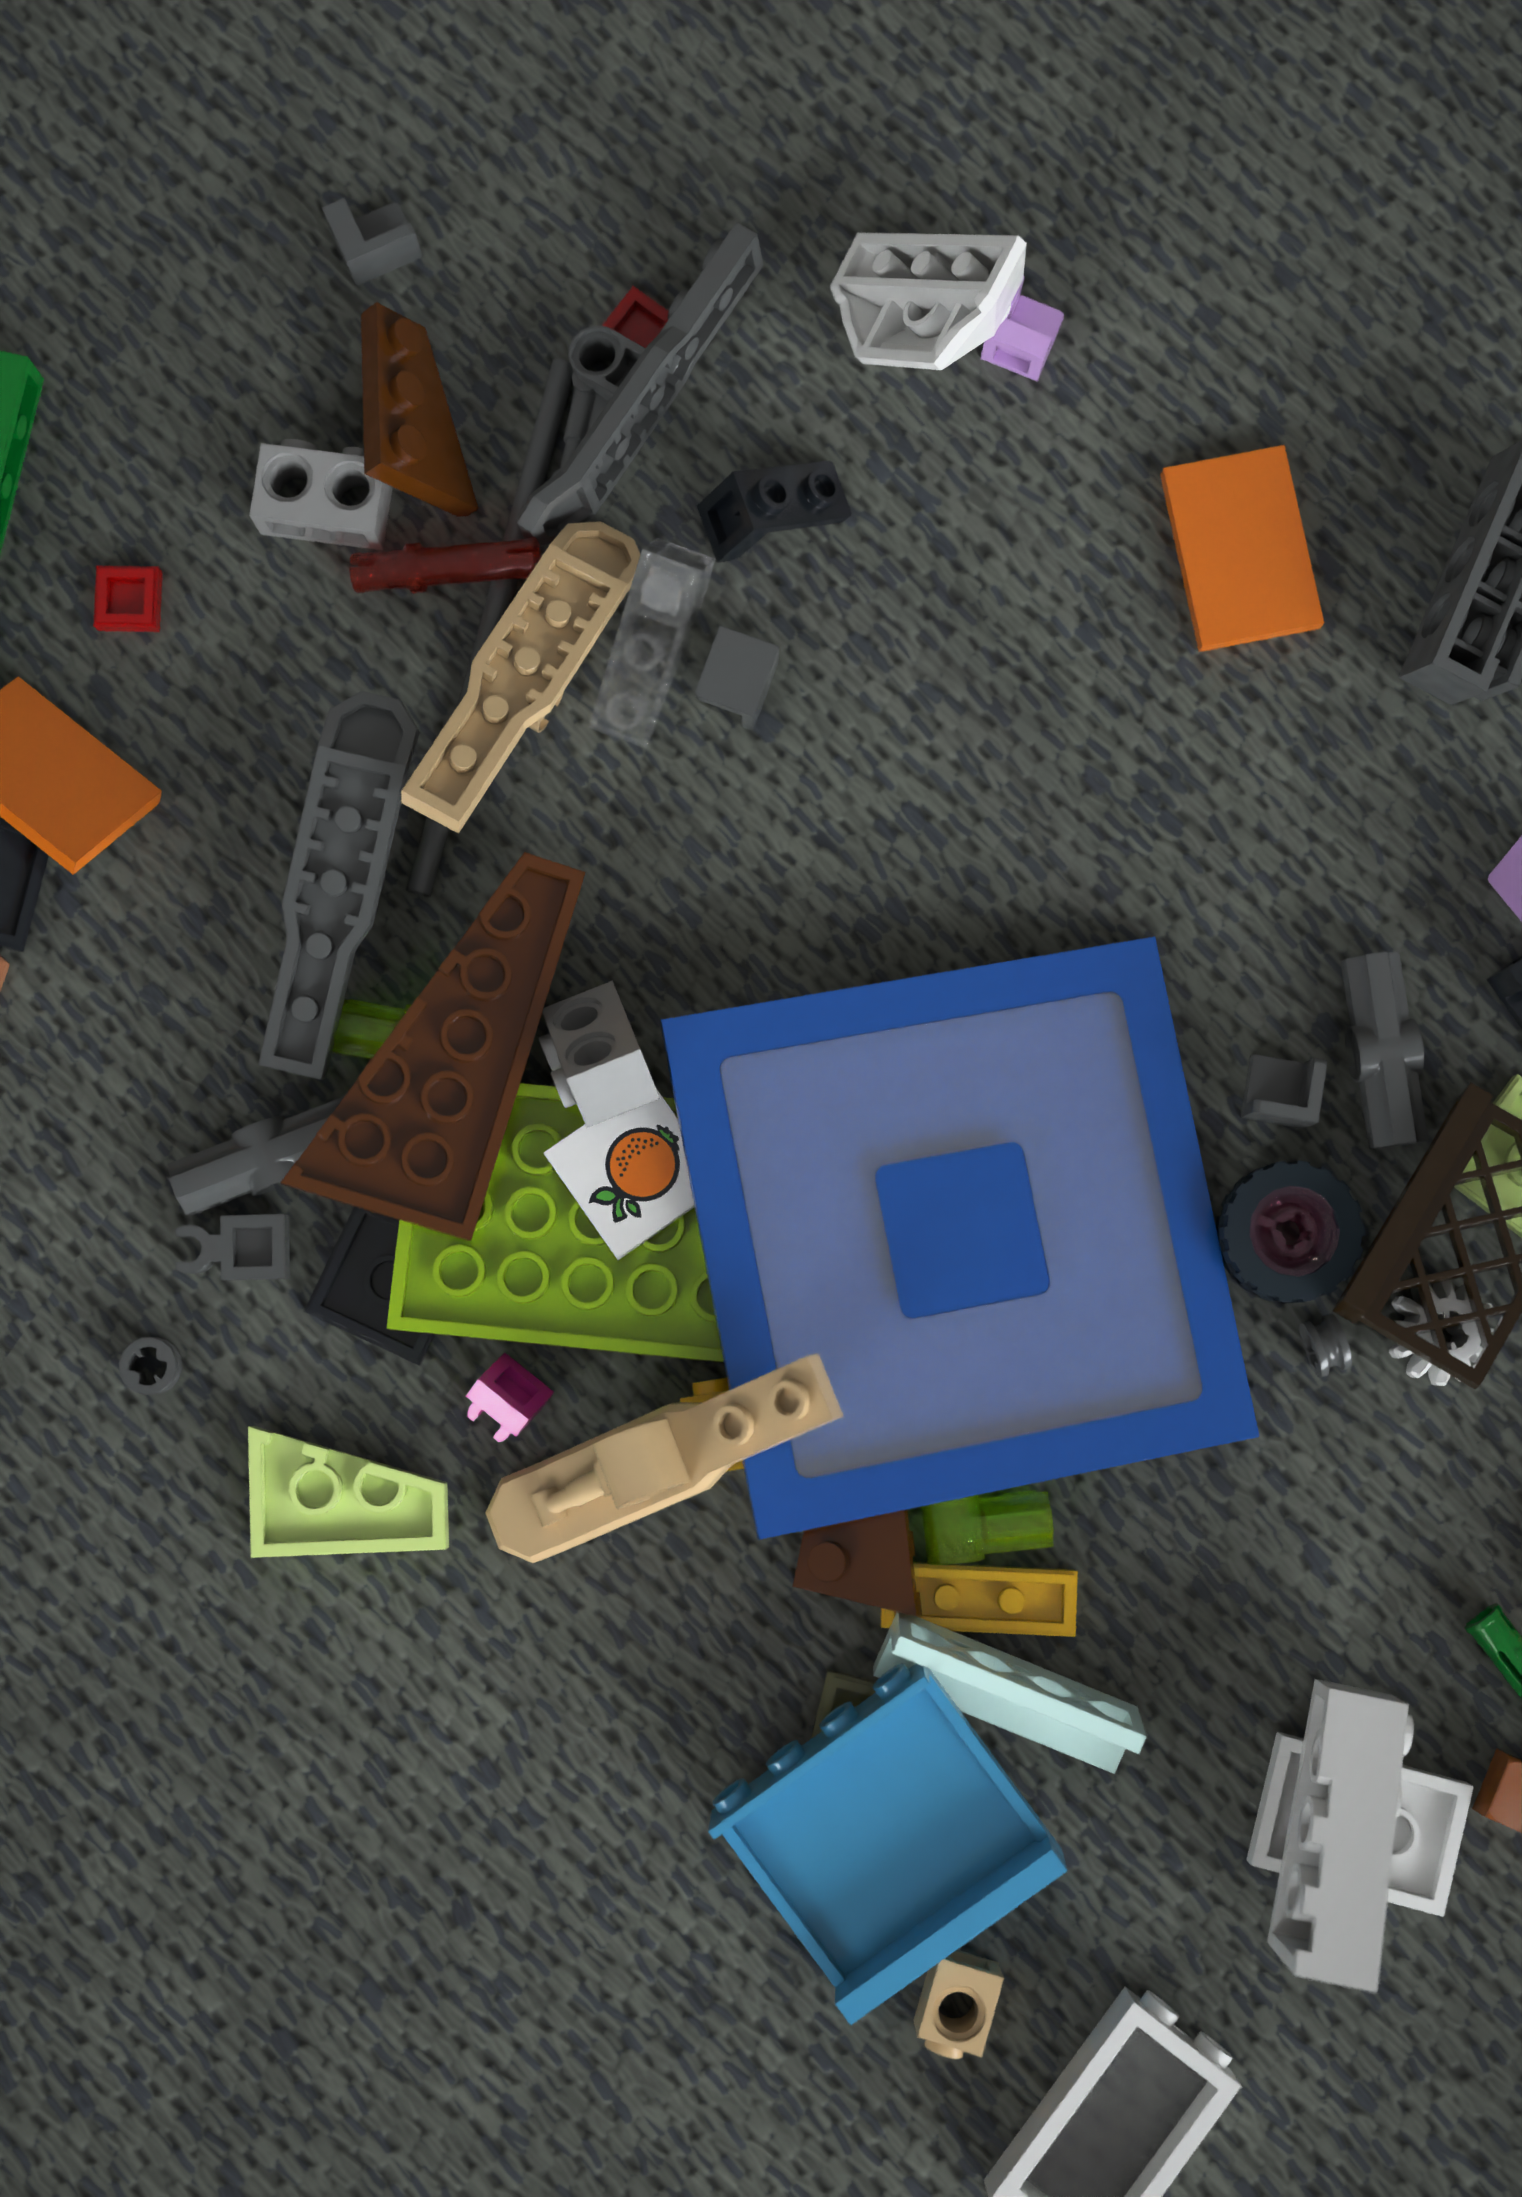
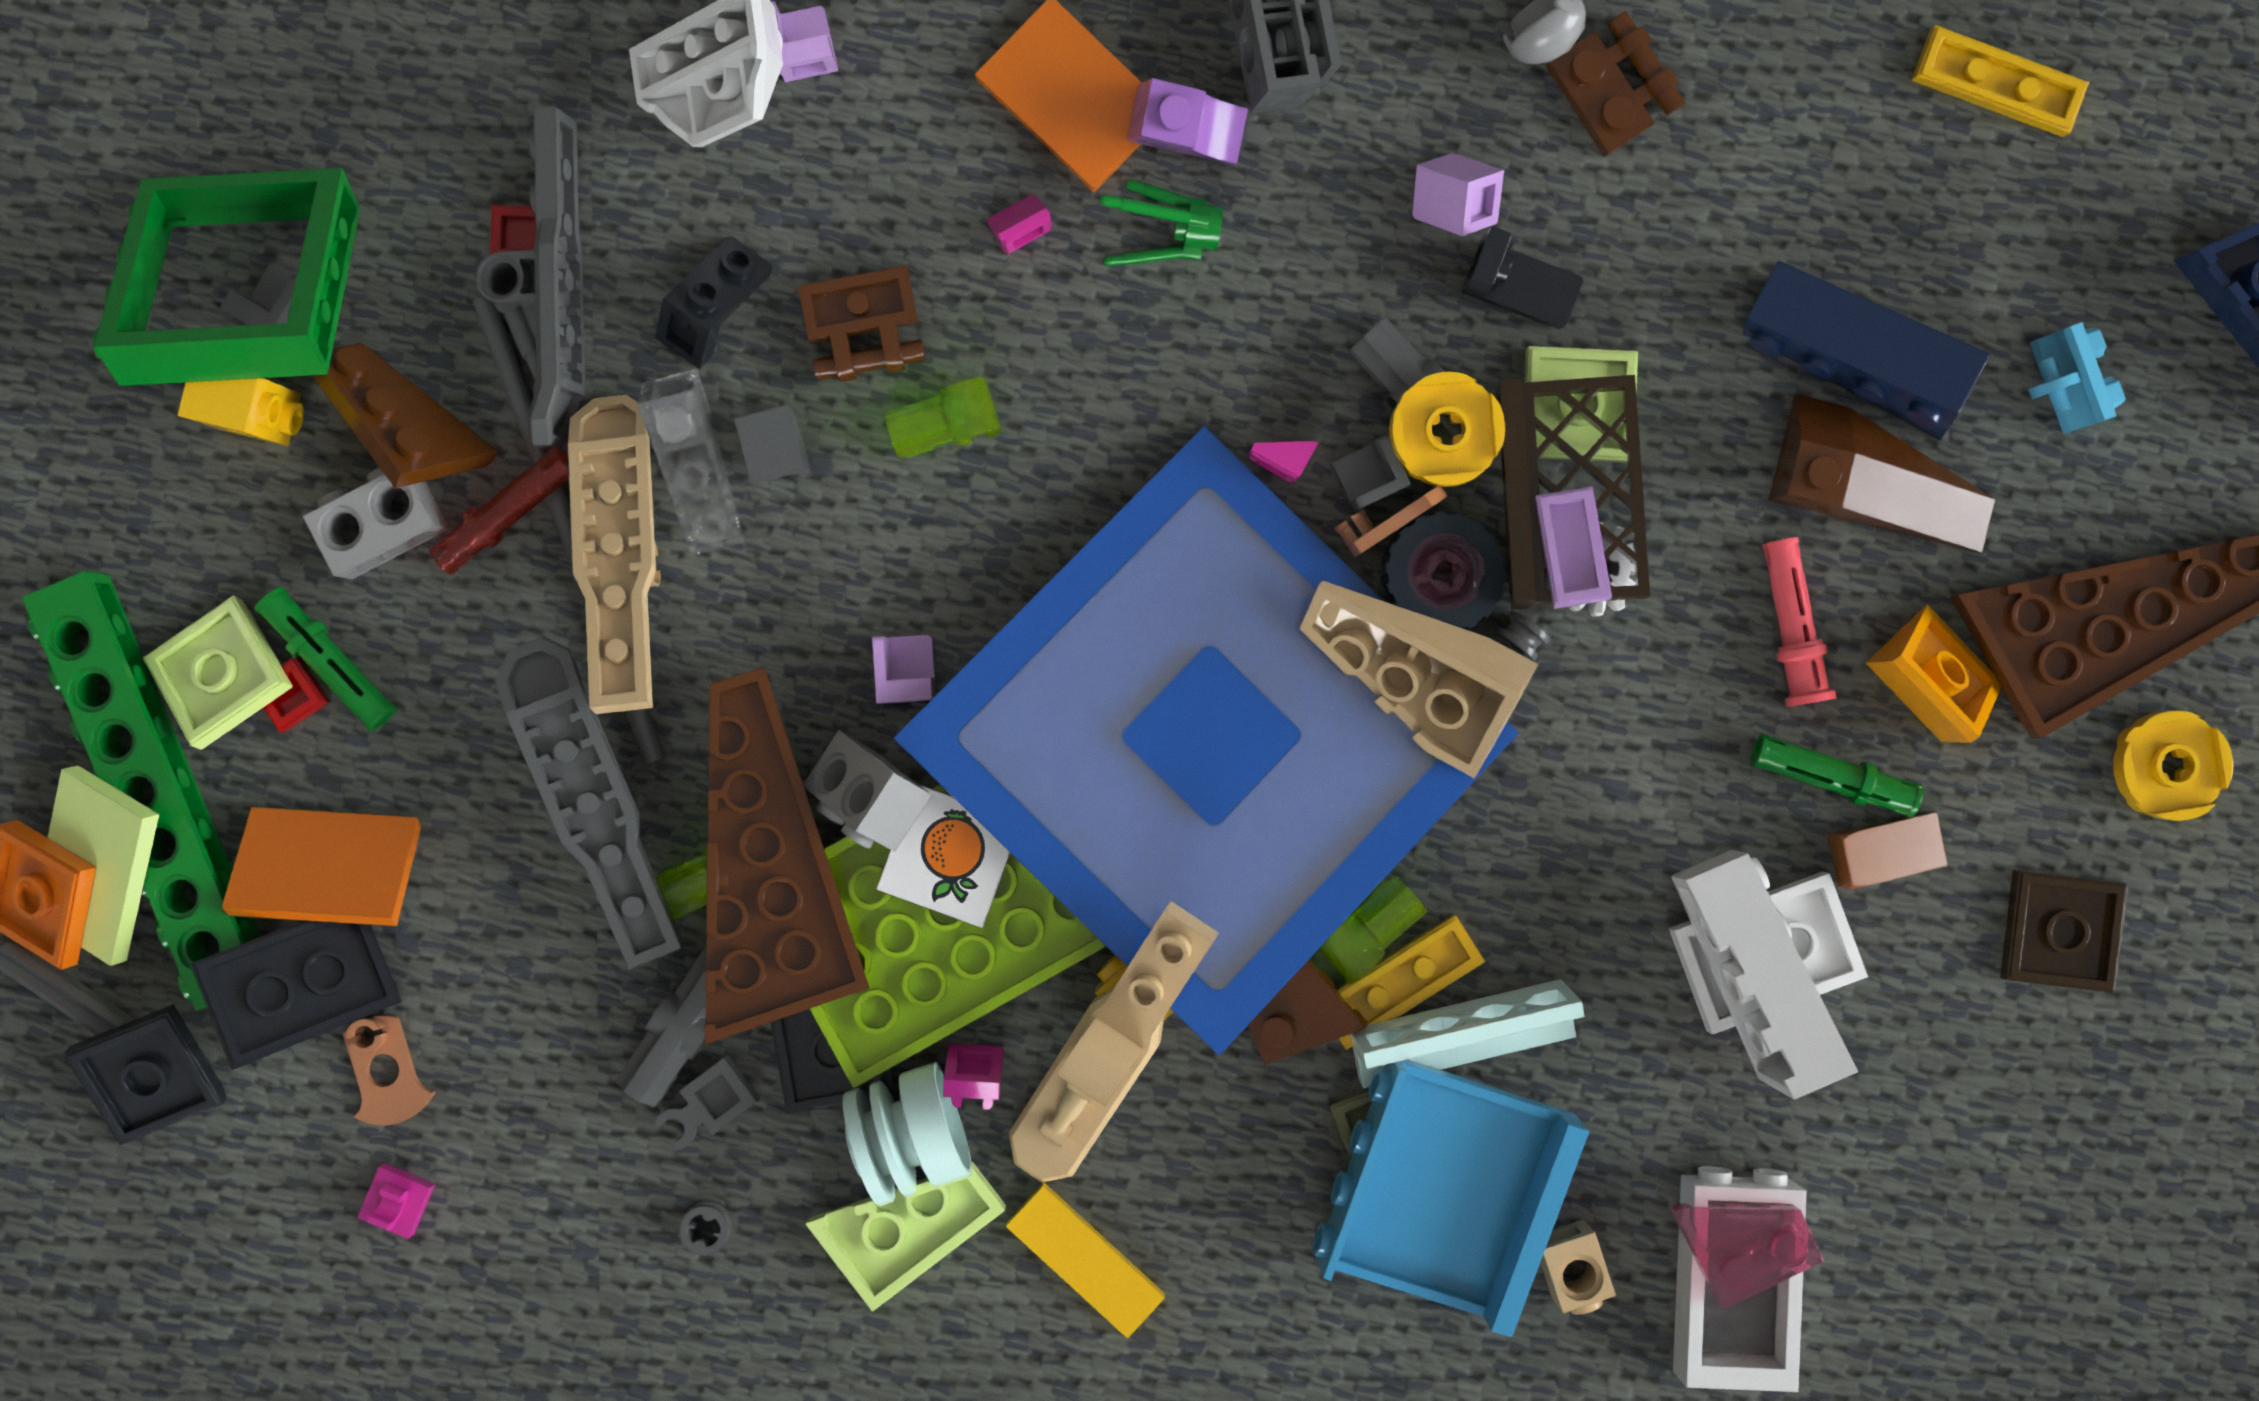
camera: 30 degrees left, 5 degrees up
(77, 532) = (217, 672): none -> yellowish green tile
(177, 520) = (280, 612): none -> green pin
(279, 305) = (245, 408): none -> yellow brick
(315, 250) = (230, 352): none -> green window
(405, 1406) = (895, 1137): none -> light aqua wheel
(487, 1655) = (1085, 1260): none -> yellow tile
(712, 967) = (904, 669): none -> lavender panel
(906, 605) = (856, 307): none -> reddish brown plate
(925, 766) = (952, 417): none -> clear neon green piece
(1110, 633) = (1020, 223): none -> dark pink slope
(1144, 2100) = (1747, 1247): none -> clear pink wing
(1209, 1016) = (1283, 458): none -> dark pink slope
(1213, 1320) = (1433, 675): none -> tan wedge
(1269, 1151) = (1373, 534): none -> nougat piece
(1275, 744) = (1194, 219): none -> green plant
(1333, 643) = (1186, 122): none -> medium lavender arch
(1423, 1084) = (1467, 405): none -> yellow plate
(1434, 1289) = (1573, 547): none -> lavender tile

